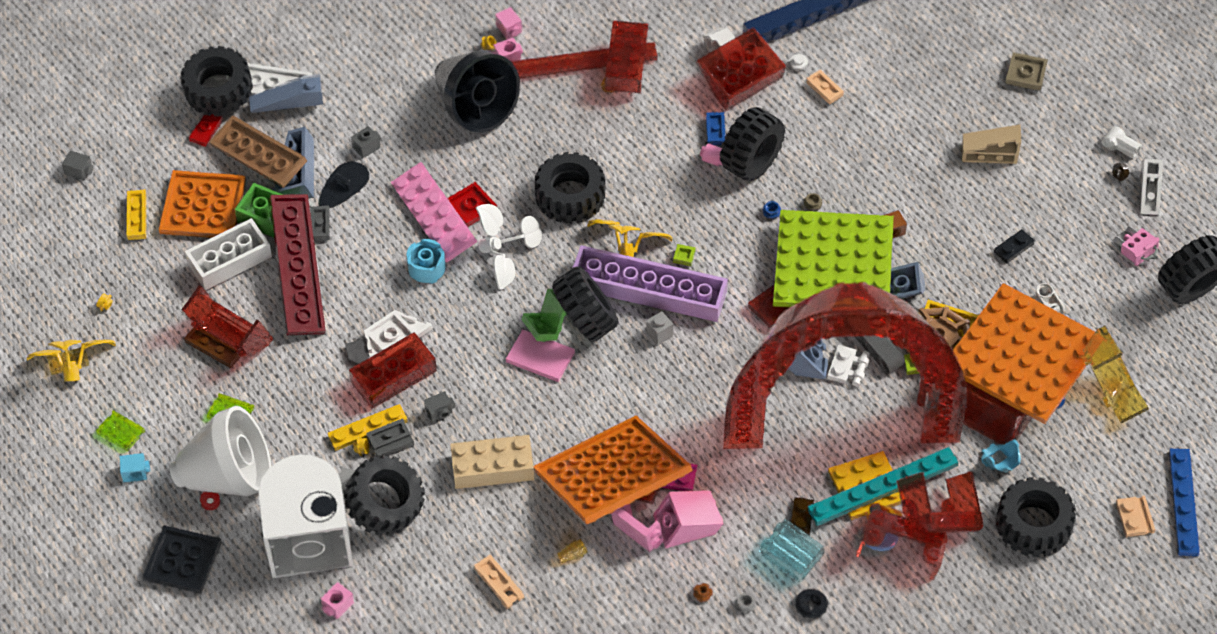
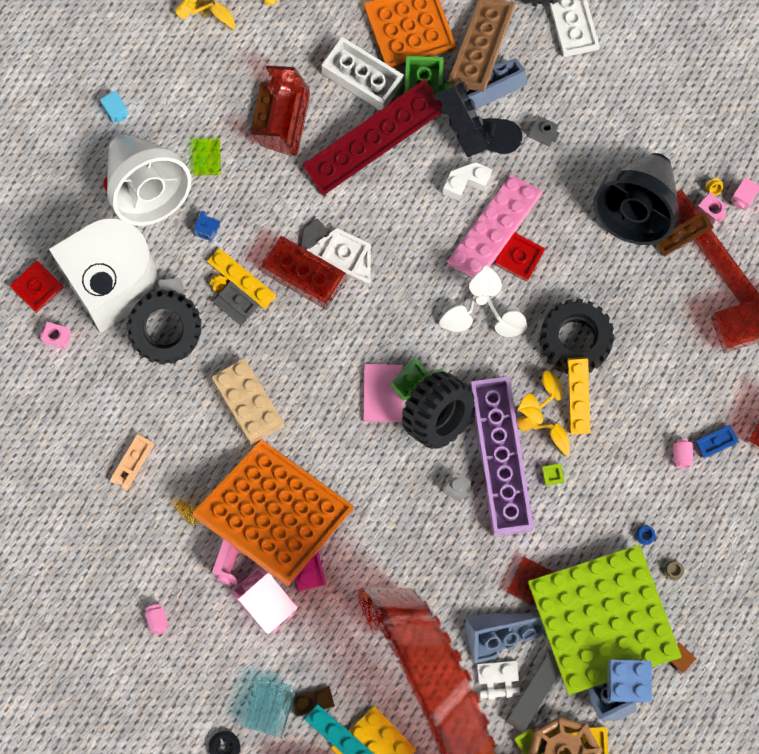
camera: 65 degrees right, 20 degrees up
(120, 431) = (149, 78): clear neon green plate -> none
(182, 559) = (44, 191): black plate -> none
(276, 601) = (36, 286): none -> red plate
(293, 94) = (566, 42): sand blue wedge -> none
(301, 436) = (206, 227): none -> blue panel
(320, 222) = (436, 135): dark grey plate -> none
(321, 185) = (463, 116): none -> black wedge
(378, 208) = (473, 175): none -> white brick
(426, 261) = (431, 256): medium azure brick -> none
(439, 406) = (285, 330): dark grey brick -> none
(520, 59) = (686, 233): none -> reddish brown plate
(625, 203) = (579, 395): none -> yellow plate
(663, 614) = (156, 619): none -> bright pink brick
(702, 597) = (196, 649): dark orange plate -> none
(745, 597) = (195, 687): light grey plate -> none
(752, 143) = (699, 486): black tyre -> none
(899, 253) = (629, 681): none -> medium blue brick

